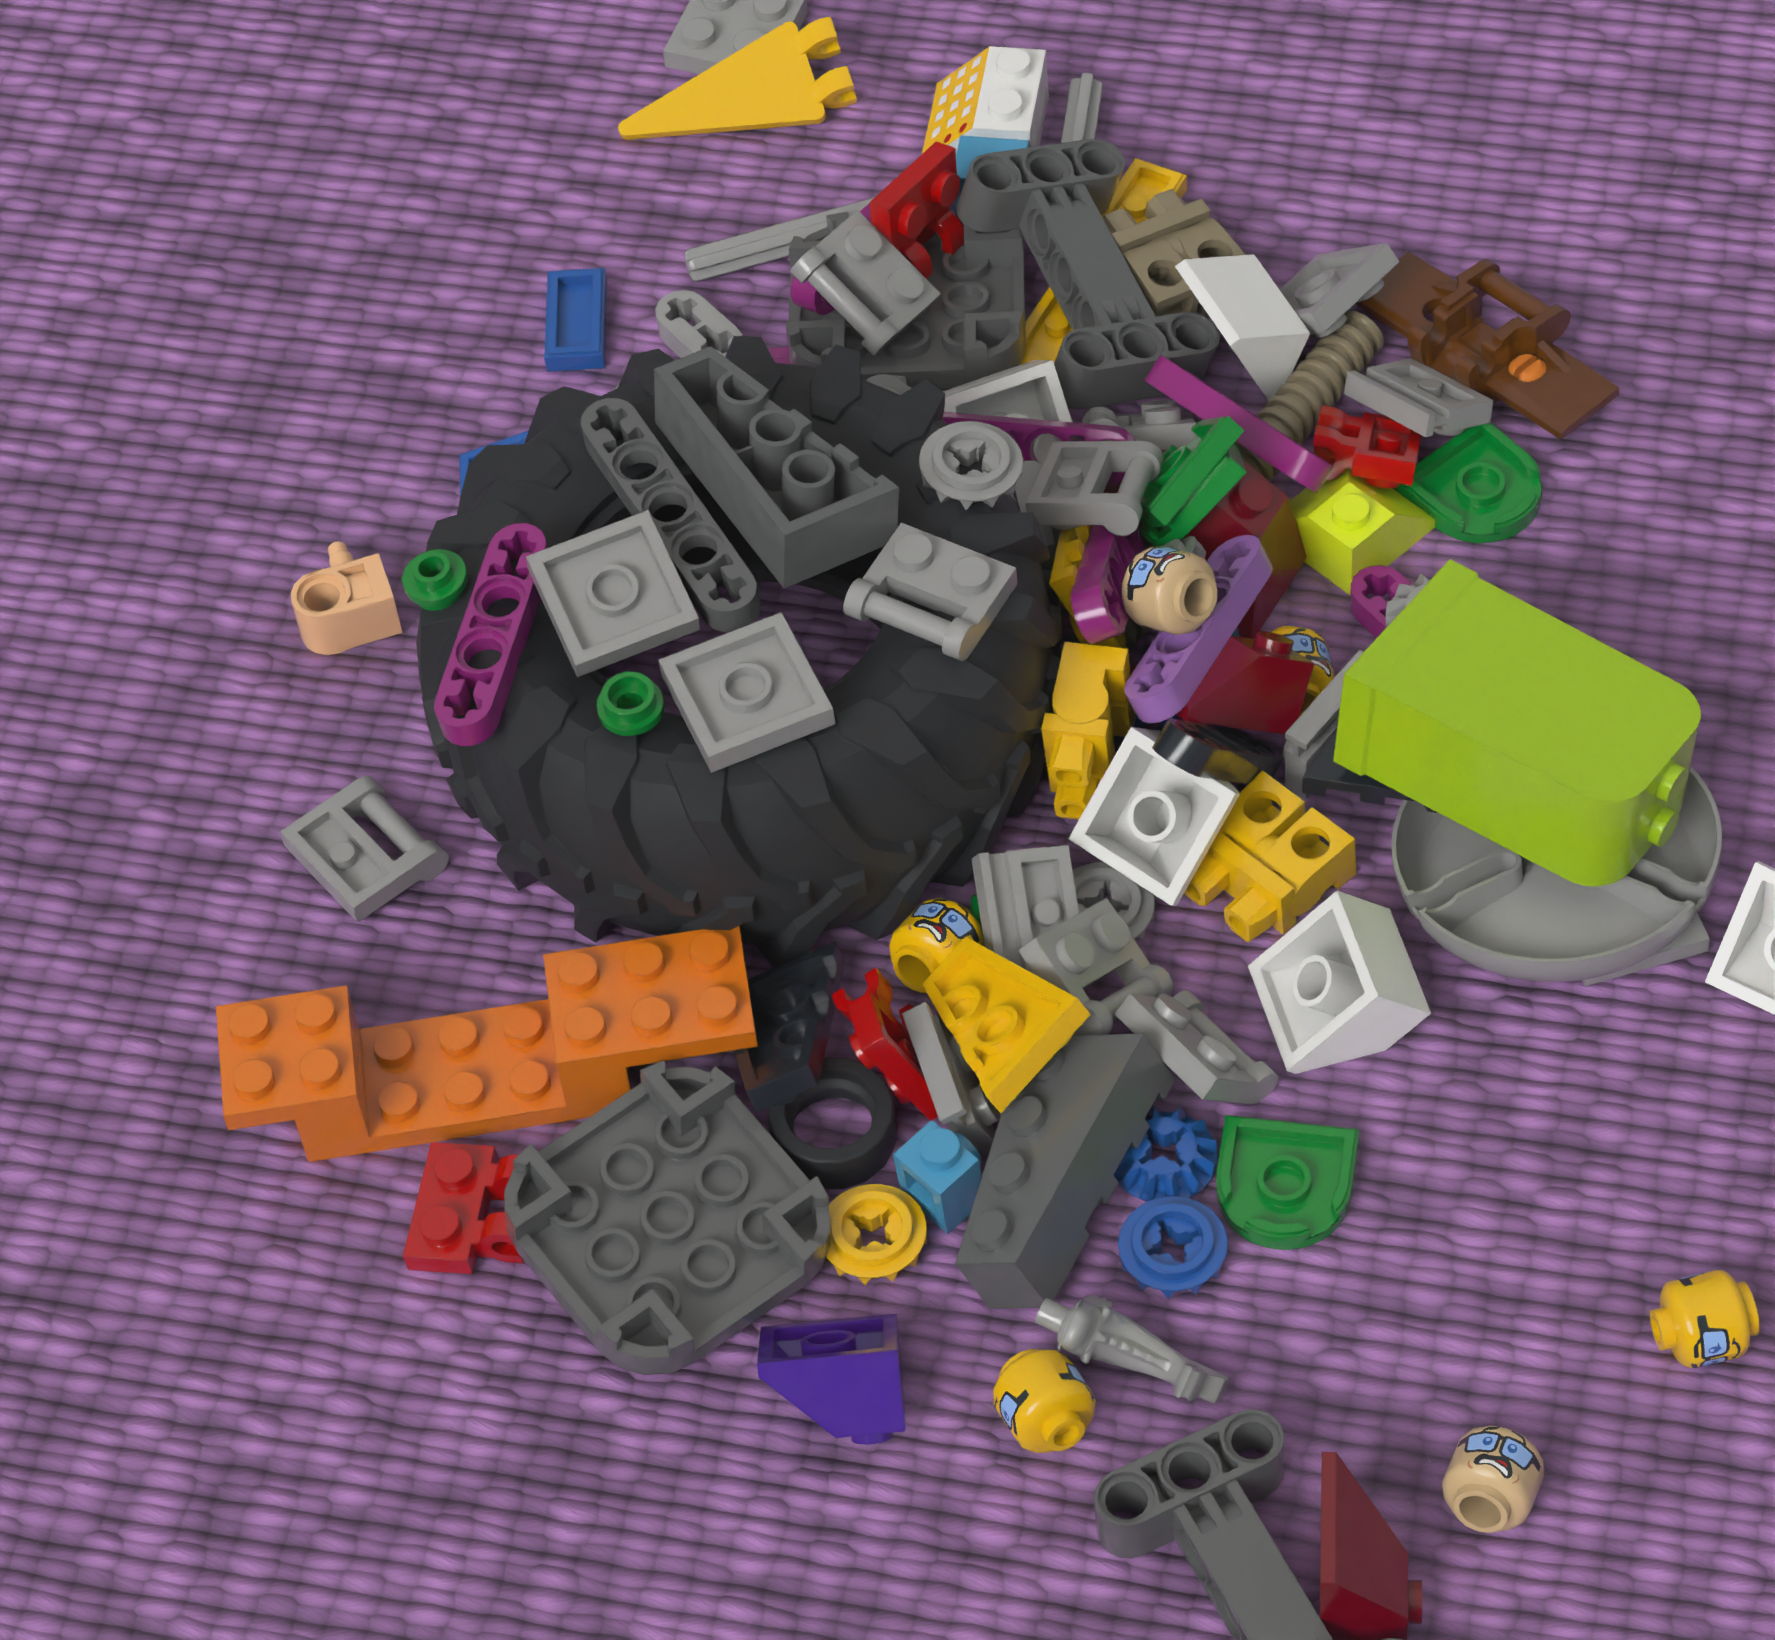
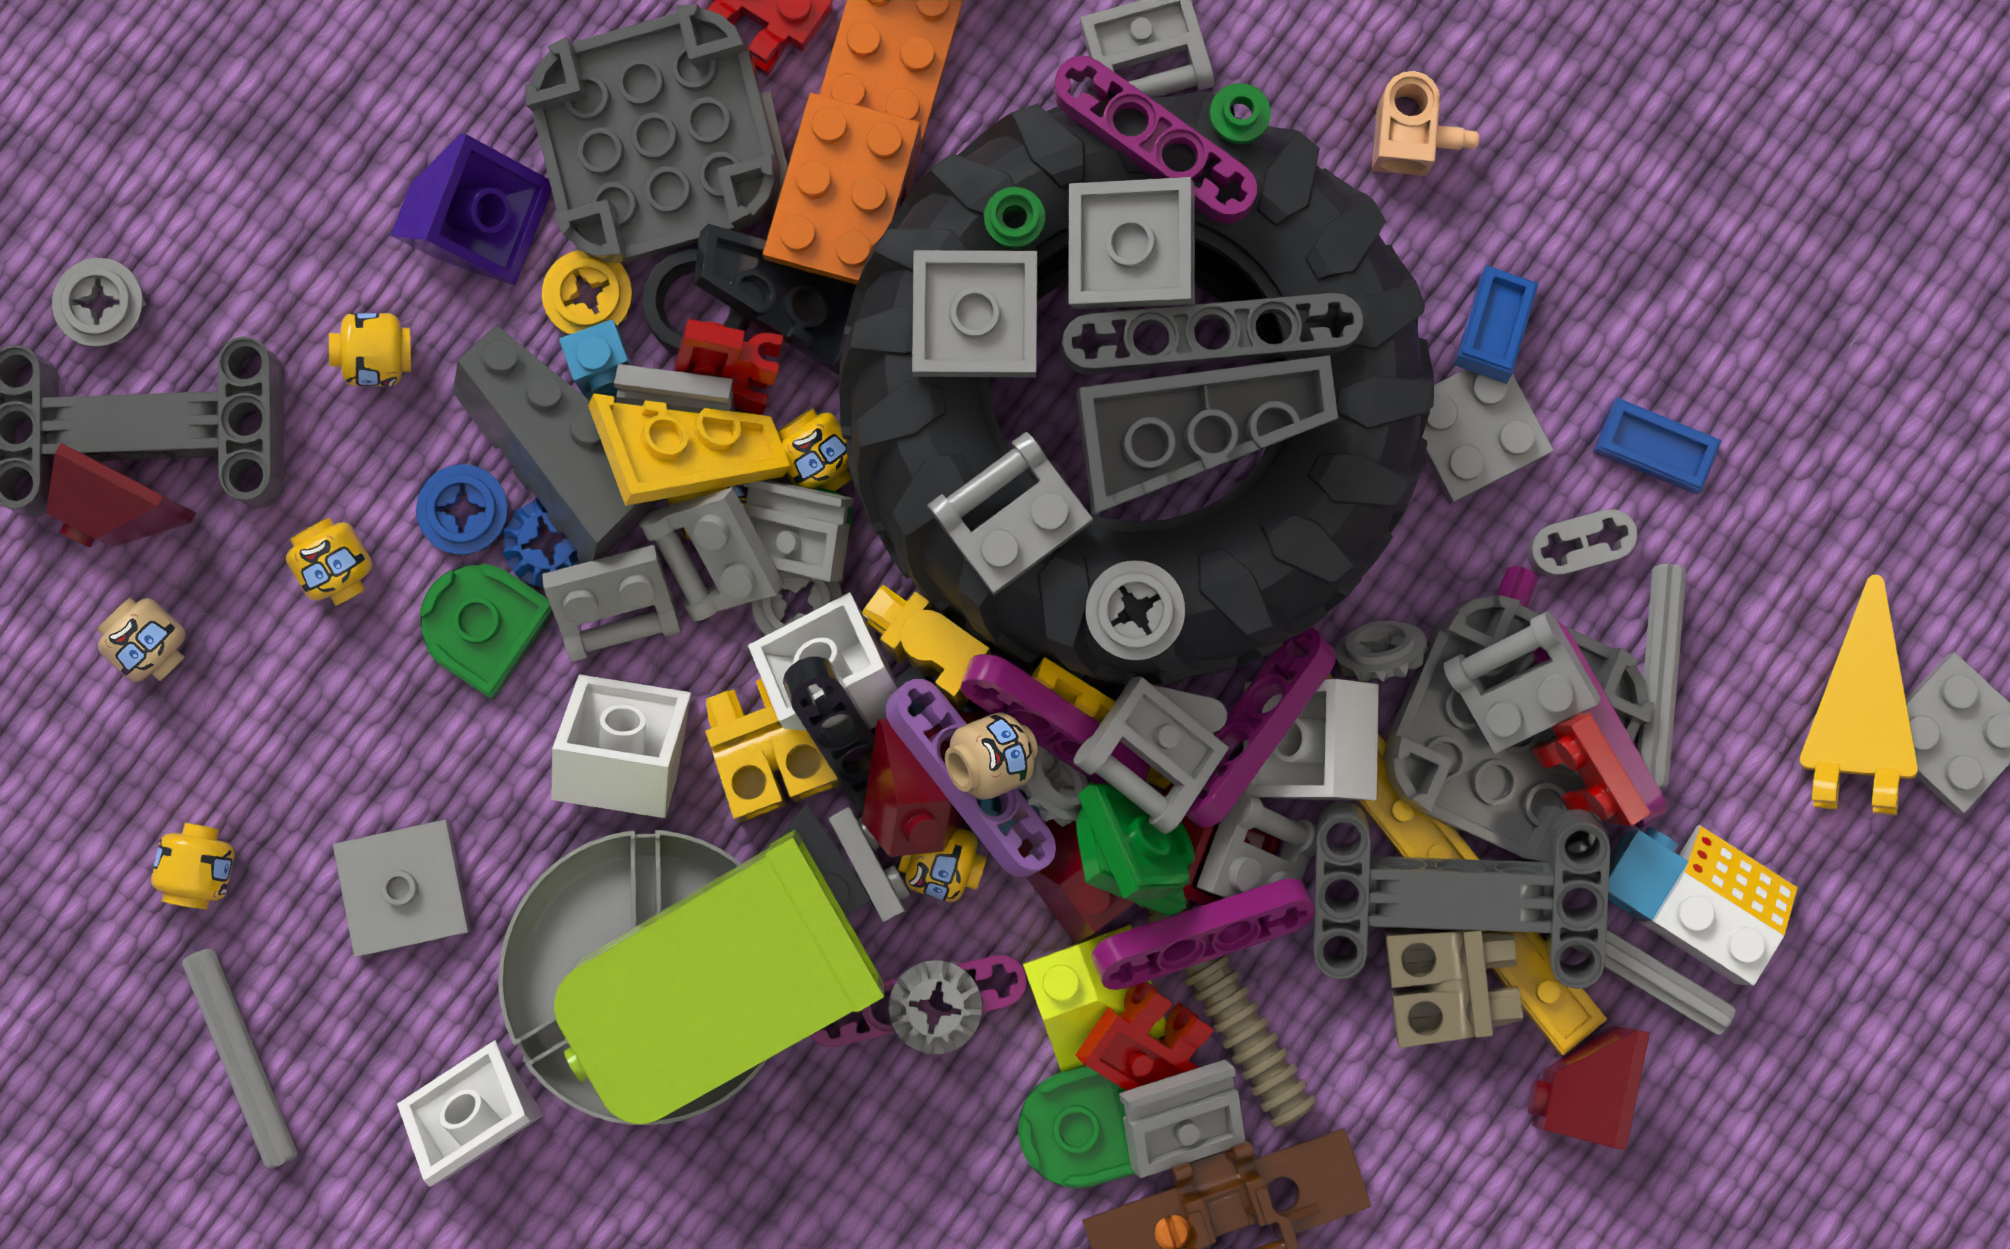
camera: 105 degrees right, 30 degrees up
(1108, 1336) = (404, 426): light grey animal -> none
(1201, 123) = (1592, 1088): none -> dark red slope
(1249, 315) = (1334, 1003): white slope -> none
(1300, 1335) = (329, 561): none -> yellow head
(1335, 283) = (1341, 1094): light grey plate -> none
(1605, 1127) = (401, 888): none -> light grey plate

